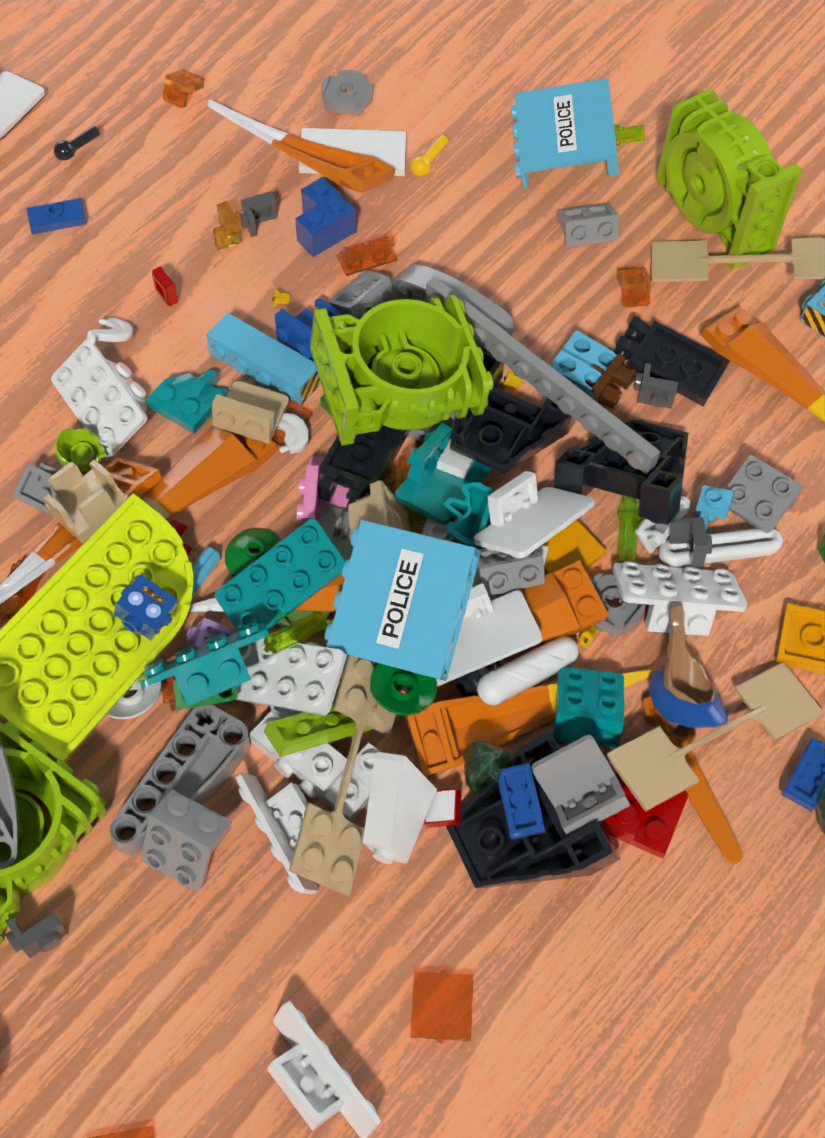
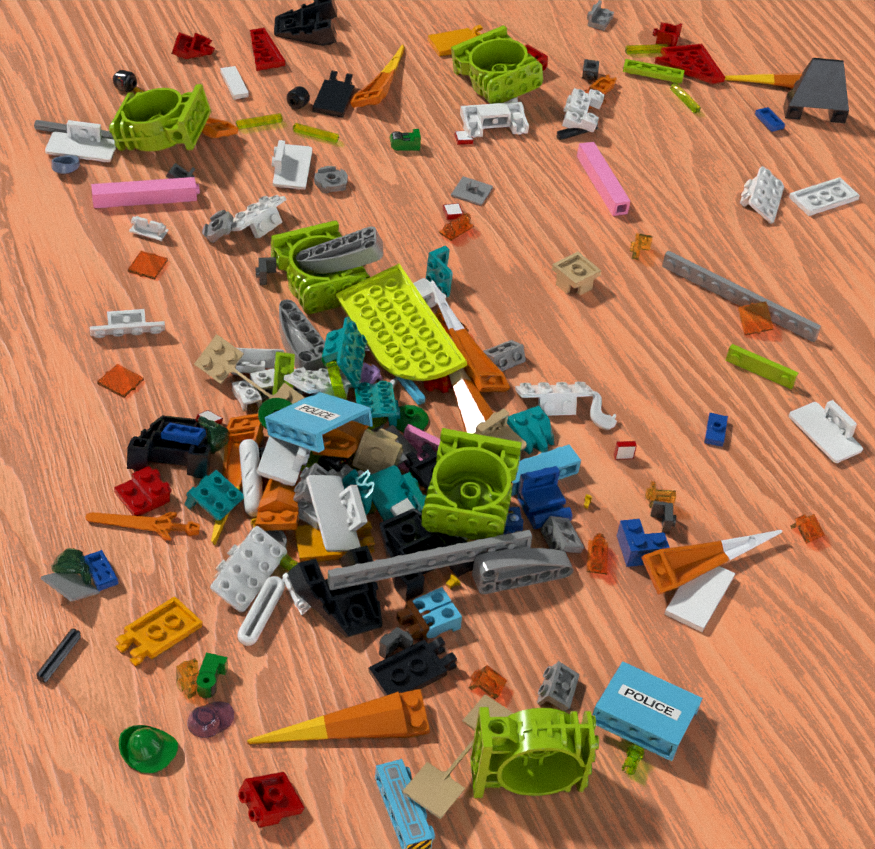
camera: 115 degrees right, 15 degrees down
(66, 149) = (776, 455): black bar -> none
(78, 447) = (522, 369): lime hair -> none
(83, 501) = (476, 348): tan panel -> none
(145, 607) = (393, 341): blue head -> none
(182, 838) = (267, 319): light grey bracket -> none
(351, 103) = (760, 624): light grey plate -> none
(396, 807) = (221, 396): white slope -> none
(421, 164) = (669, 627): yellow bar -> none
(580, 784) = (164, 462): light grey bracket -> none
(658, 769) = (153, 579): tan hinge -> none
(681, 686) = (185, 538): hat -> none
(694, 534) = (269, 584): dark grey bracket -> none
(713, 504) = (288, 613): medium azure bracket -> none
(762, 494) = (279, 647): light grey bracket -> none

